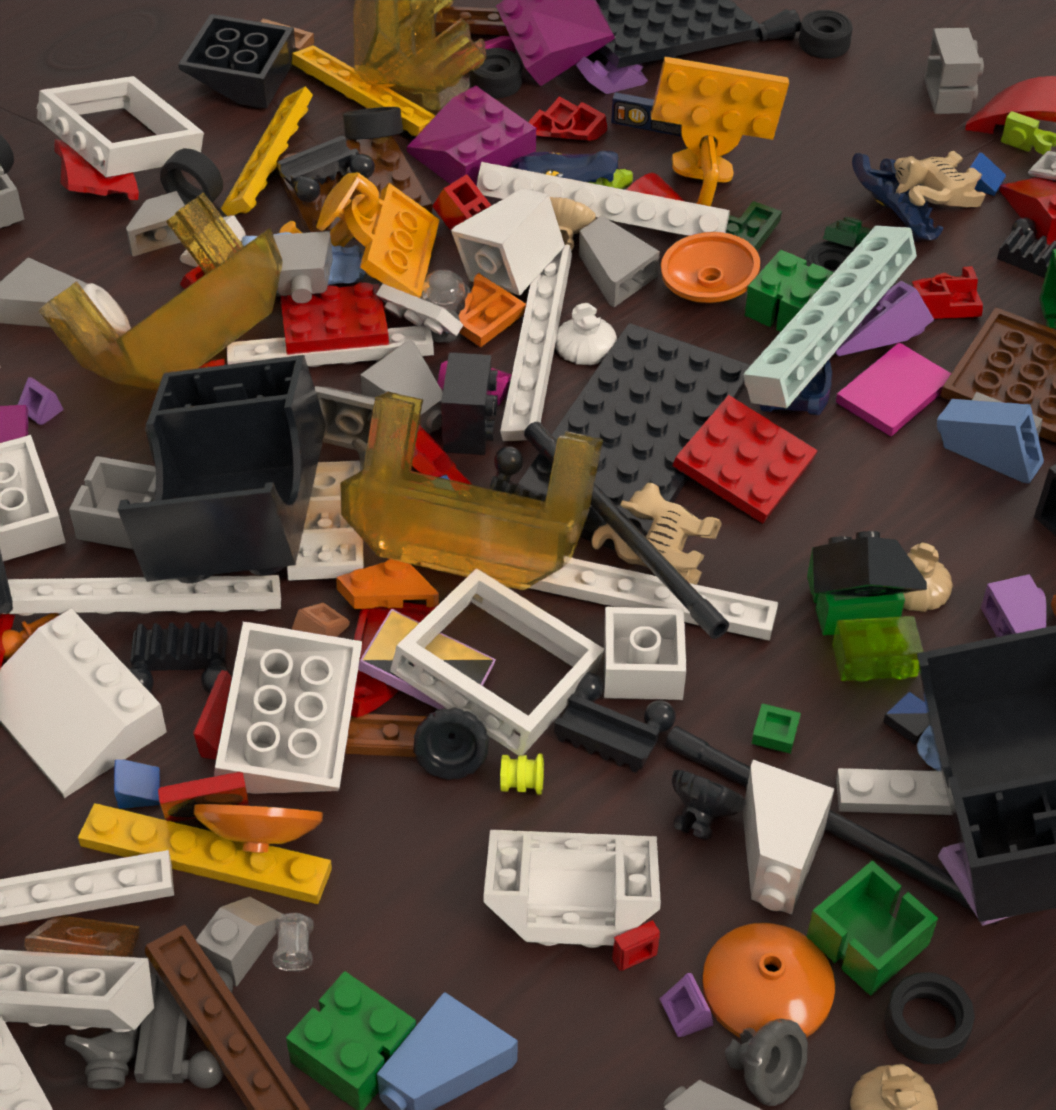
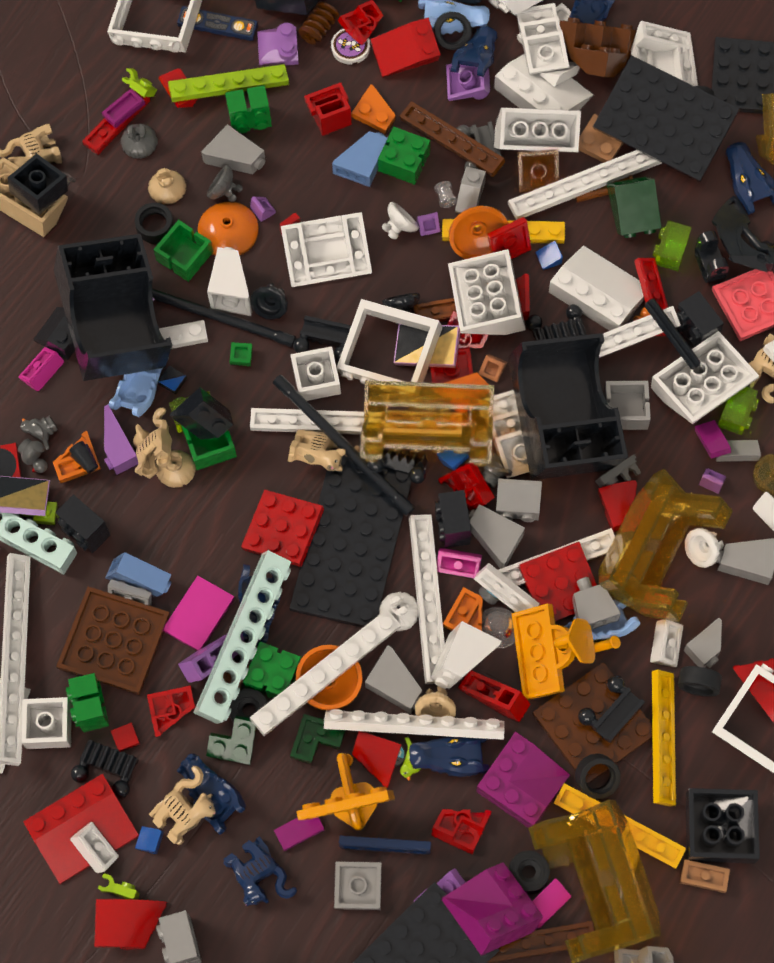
camera: 170 degrees right, 20 degrees up
(348, 899) = (428, 224): none -> medium lavender slope
(403, 898) = (399, 221): none -> white hair
(522, 773) = (356, 297): neon yellow bush -> none
(712, 263) = (325, 672): none -> white plate
(781, 155) = (297, 832): none -> magenta tile
(844, 121) = (257, 869): none -> dark blue animal
(960, 582) = (153, 446): none -> tan animal
(1016, 276) = (125, 737): none -> red tile

